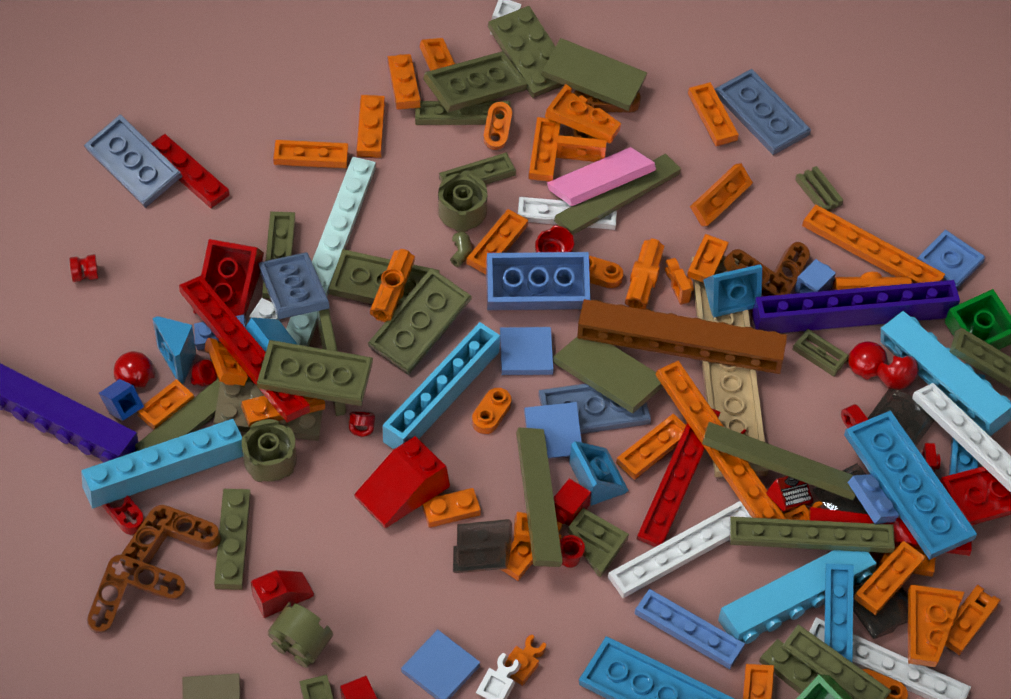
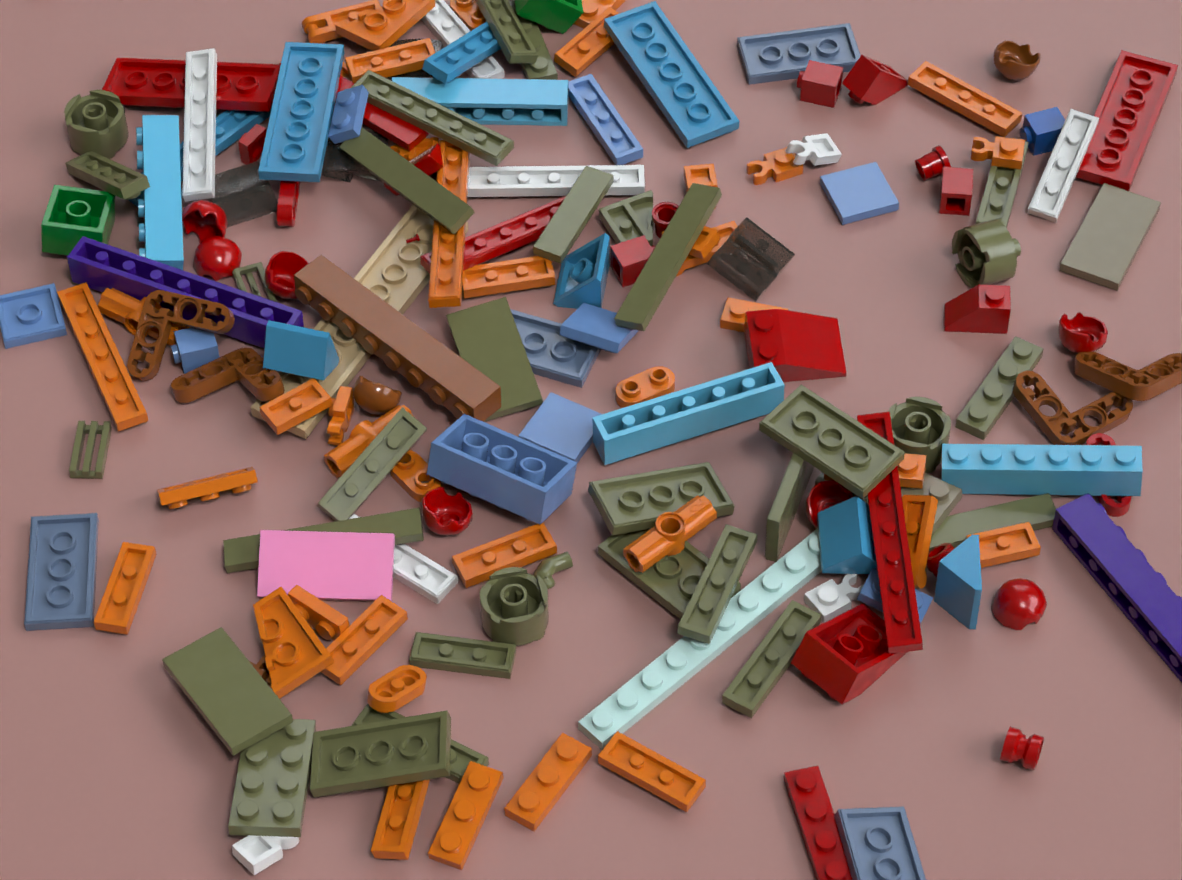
camera: 145 degrees left, 5 degrees down
(121, 399) = (1054, 562): blue brick -> none
(188, 606) = (1082, 333): none -> red hair
(293, 285) = (790, 568): sand blue tile -> none
(340, 270) = (717, 584): none -> olive plate
(568, 606) = (700, 174): none -> orange plate
(624, 248) = (372, 466): none -> olive plate
(641, 512) = (573, 214): none -> olive tile
(667, 300) = (375, 397): none -> dark orange hair
(802, 360) = (281, 271): none -> red hair
(846, 272) = (163, 321): none -> dark orange beam

